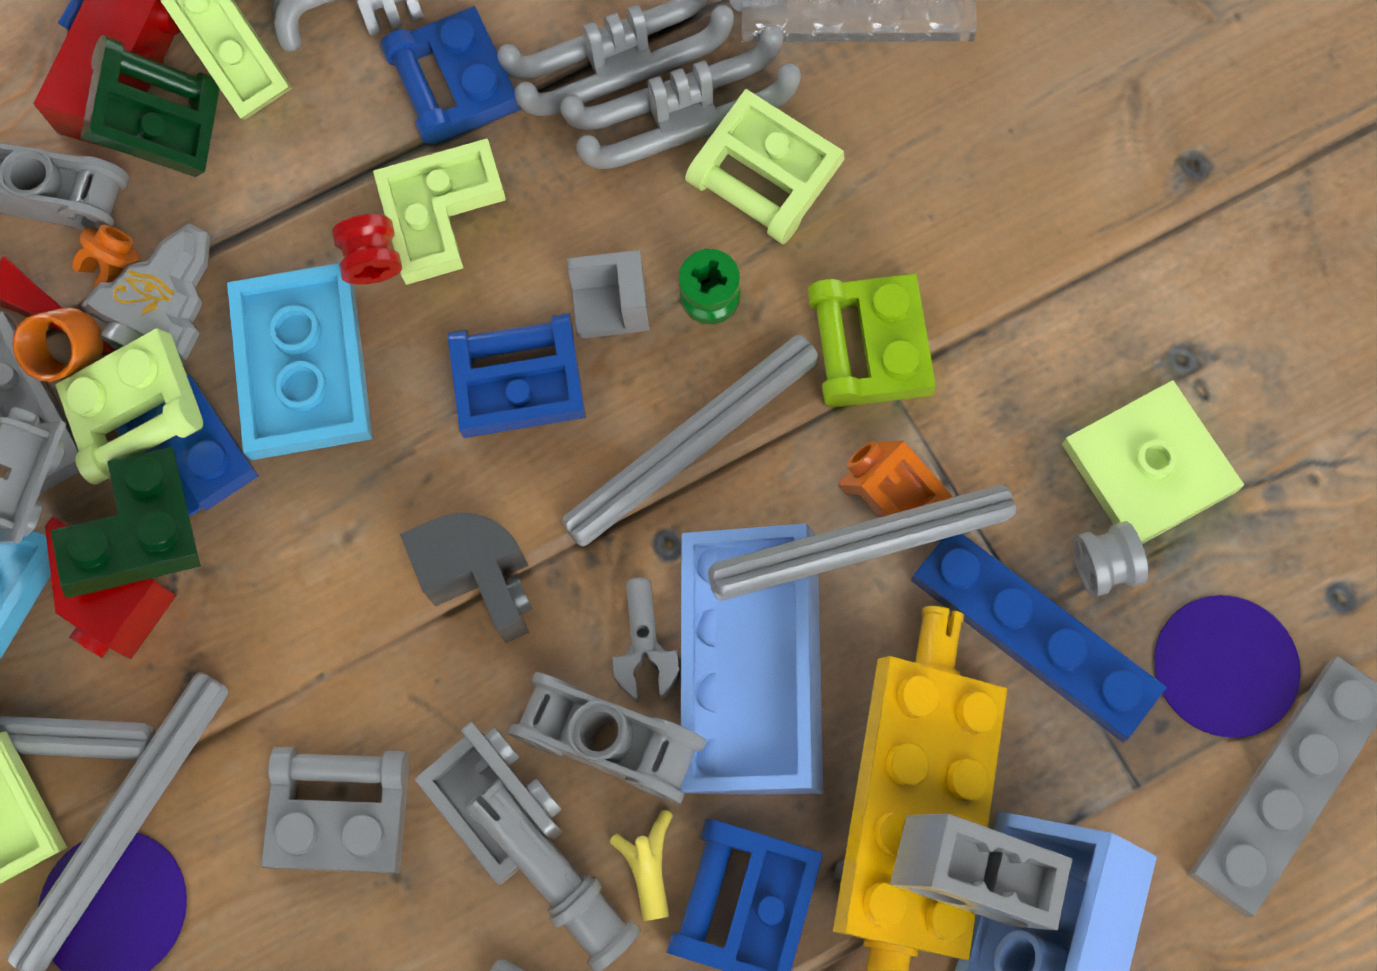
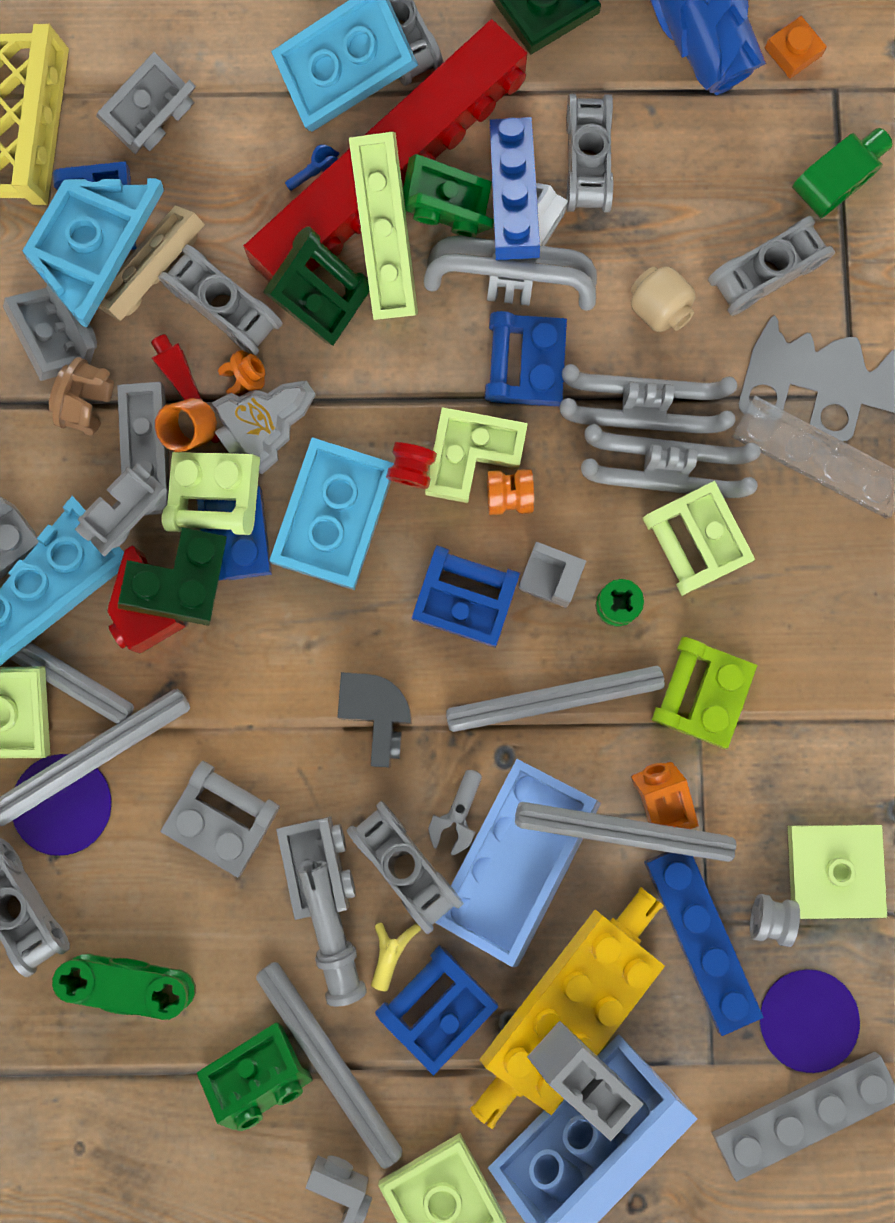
camera: 20 degrees right, 10 degrees up
(507, 226) = (510, 492): none -> orange wheel

